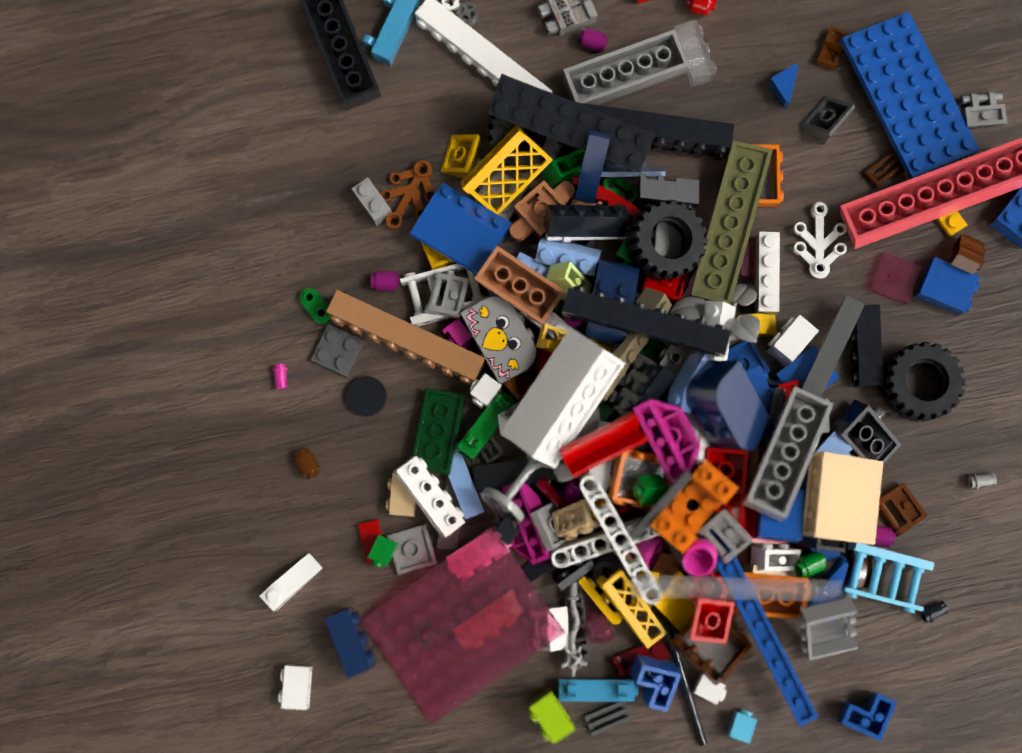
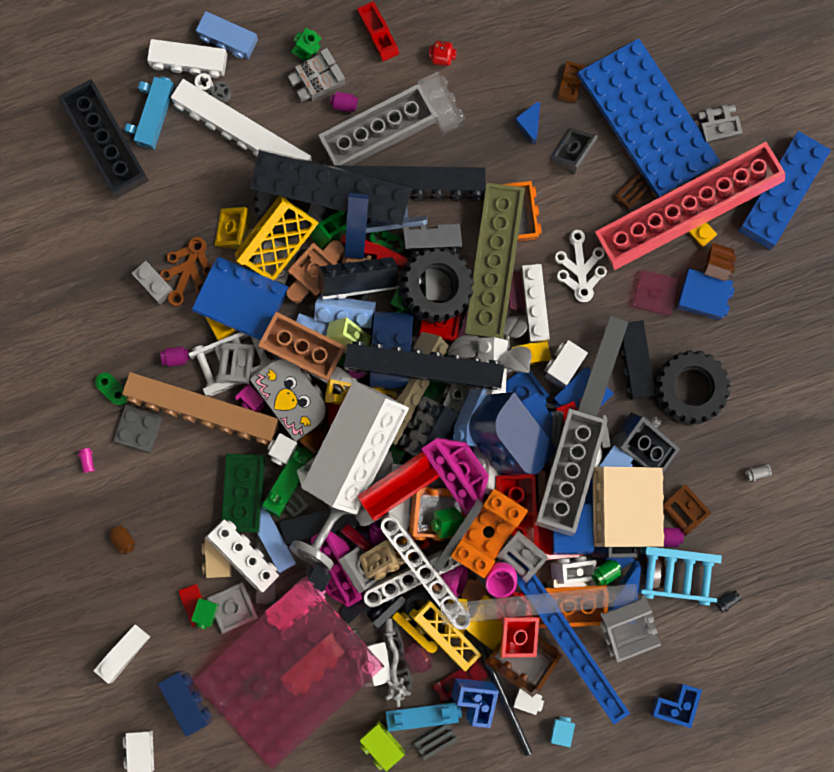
camera: 15 degrees left, 0 degrees up
(366, 396) = (171, 468): black tile -> none

